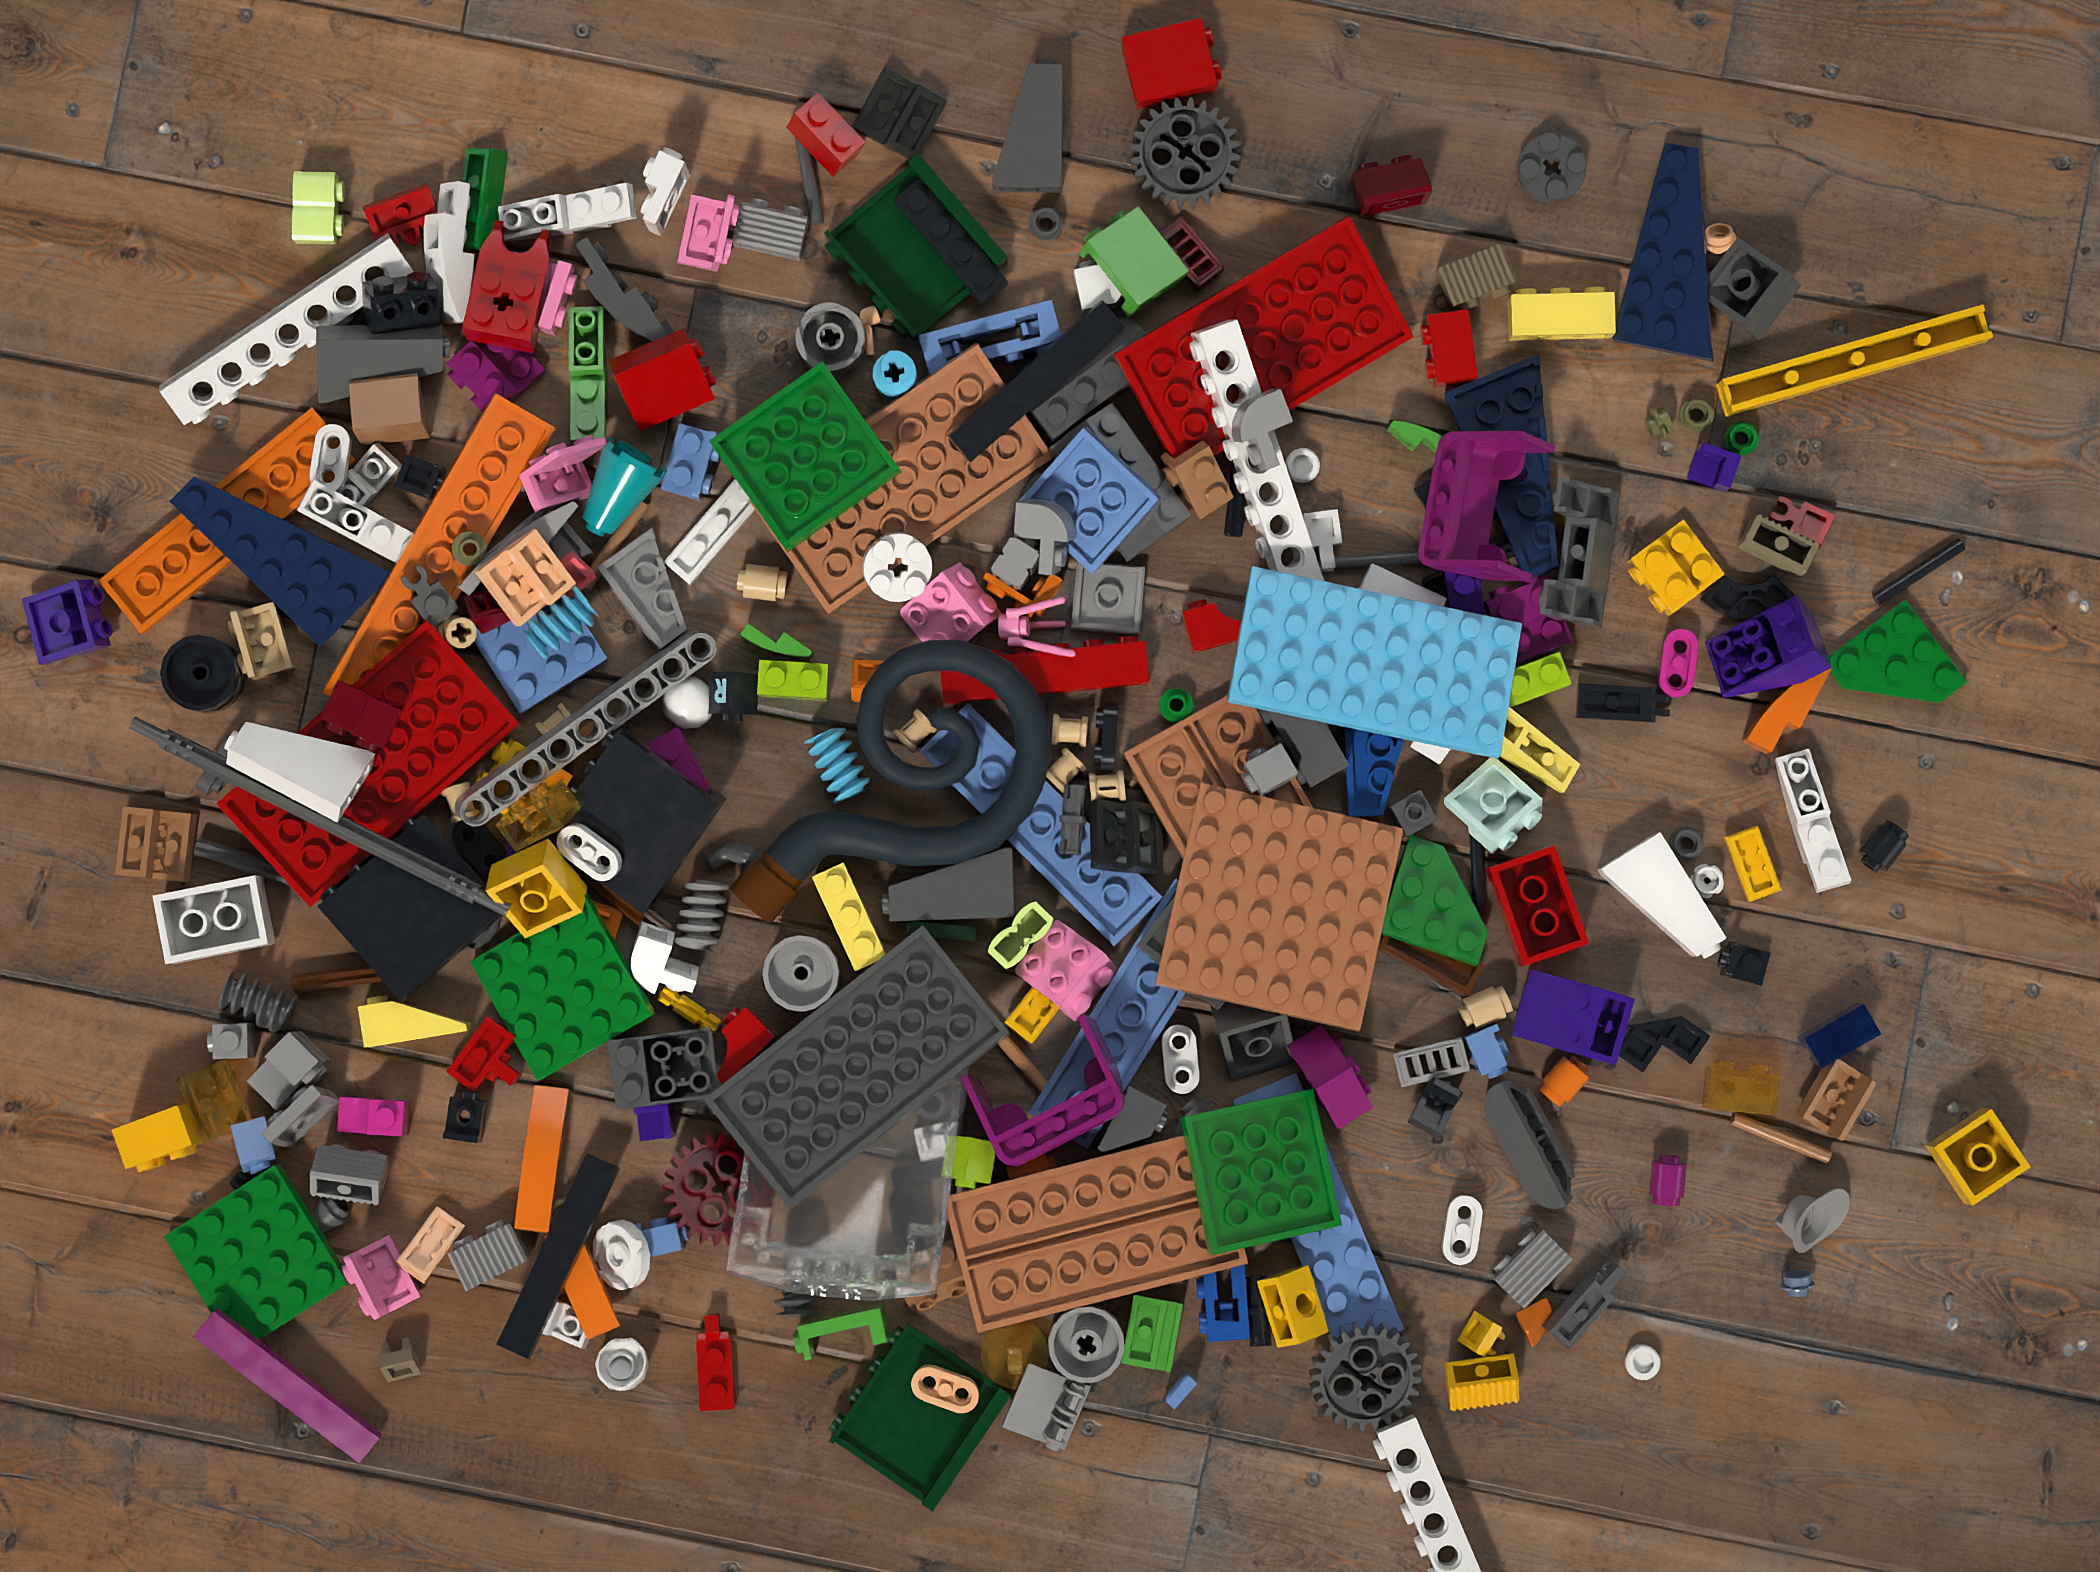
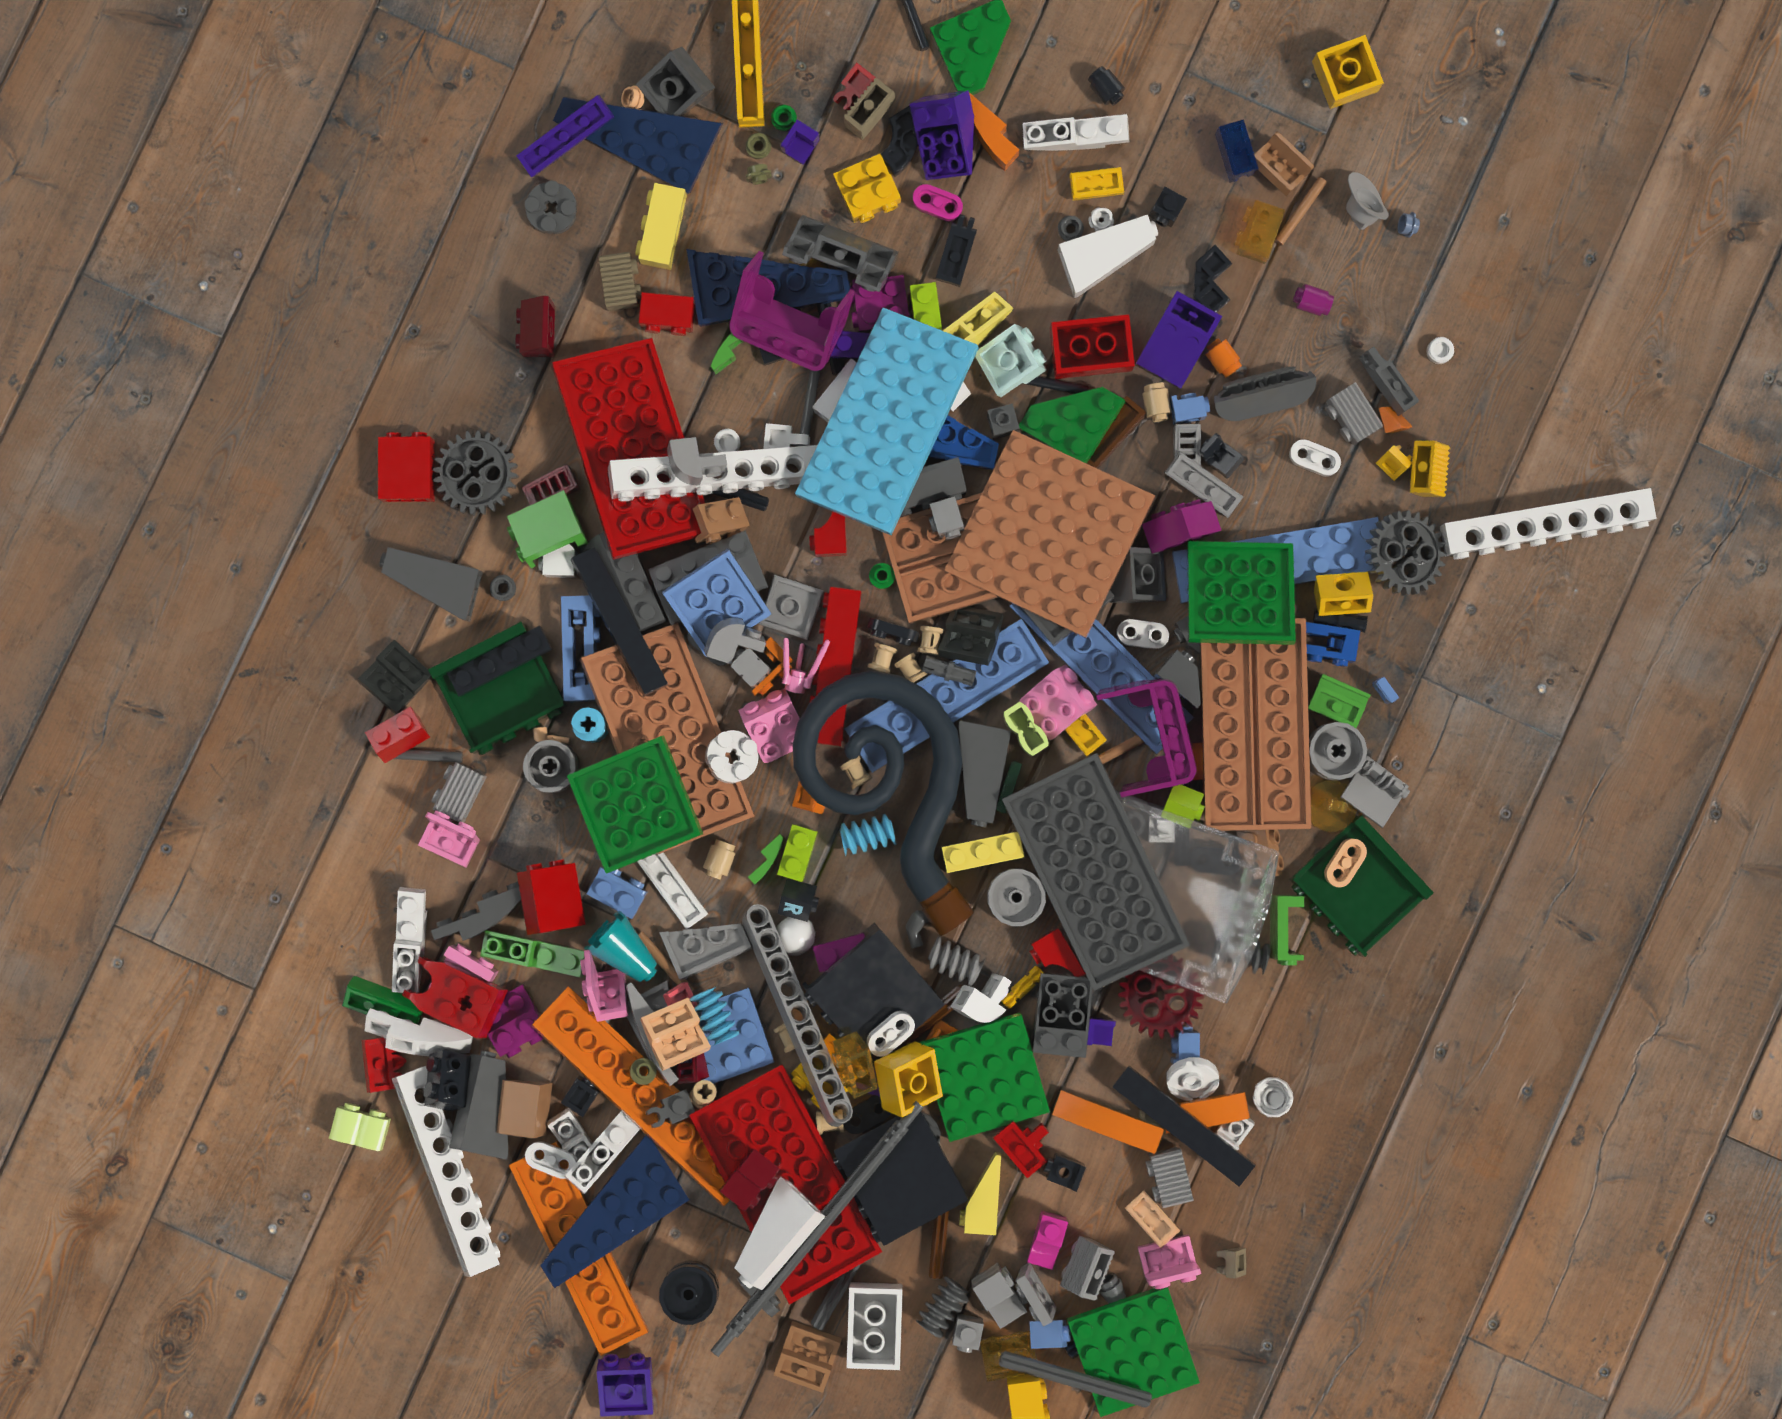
camera: 70 degrees left, 0 degrees up
(204, 1191) = (1075, 1379): none -> dark grey axle
(261, 641) = (674, 1243): tan bracket -> none
(287, 1385) = (1232, 1349): magenta tile -> none
(666, 182) = (405, 862): white plate -> none
(715, 1366) = (1290, 1029): red hinge -> none
(1393, 1093) = (1203, 484): none -> light grey tile
(1647, 163) = (565, 136): none -> dark purple plate

